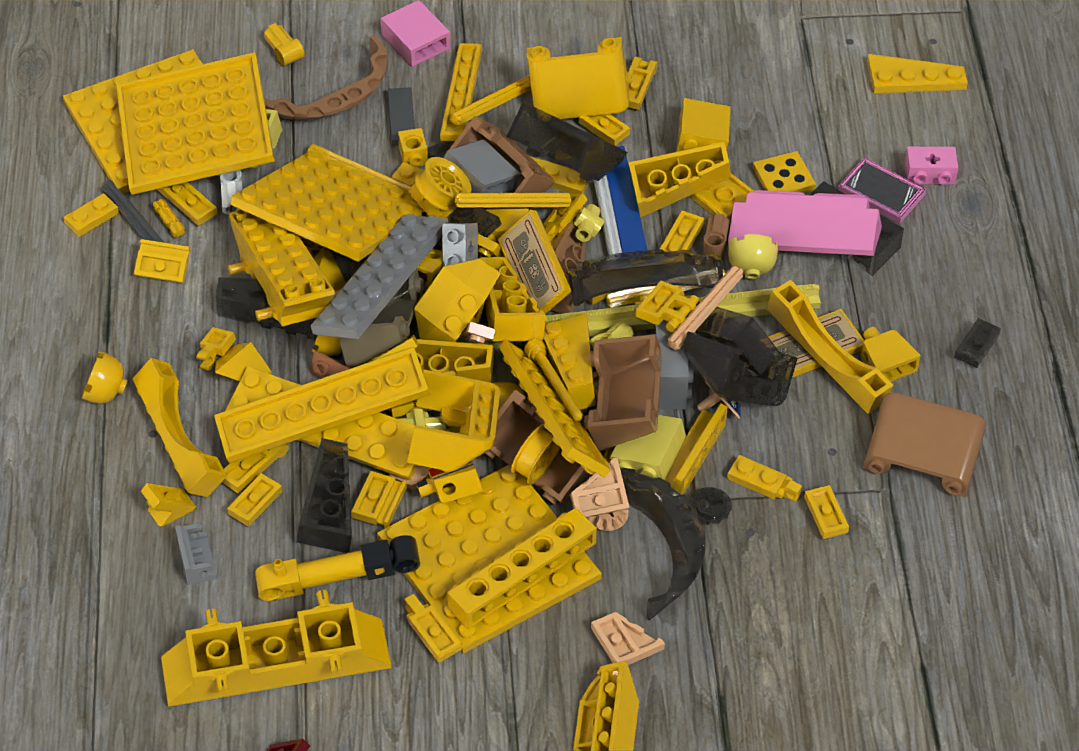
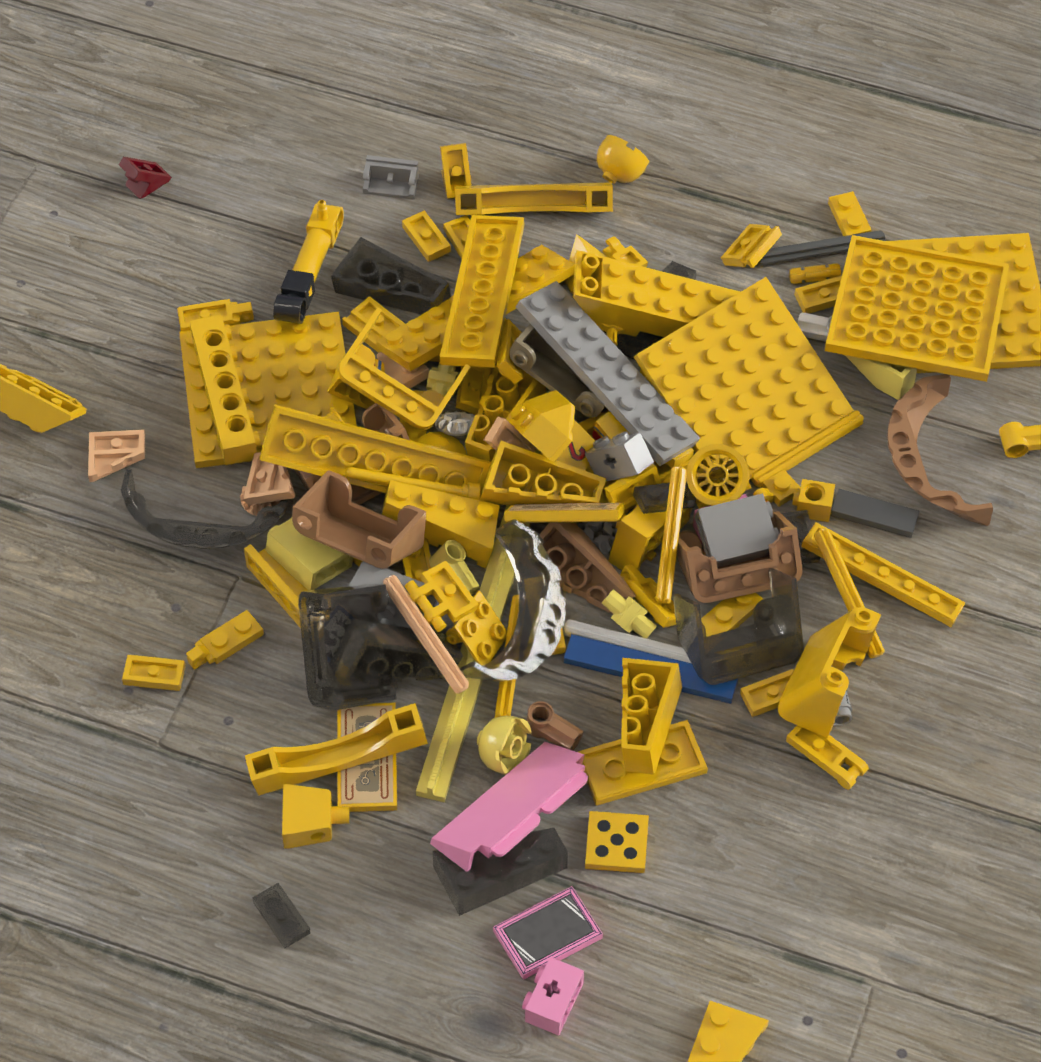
camera: 115 degrees right, 5 degrees up
(240, 660) = (243, 199): yellow piece -> none
(415, 33) = (996, 563): bright pink brick -> none
(683, 232) = (567, 694): yellow plate -> none
(702, 124) = (711, 776): yellow brick -> none
(714, 497) = (211, 574): clear smoke gear -> none
(926, 440) = (170, 787): medium nougat windscreen -> none

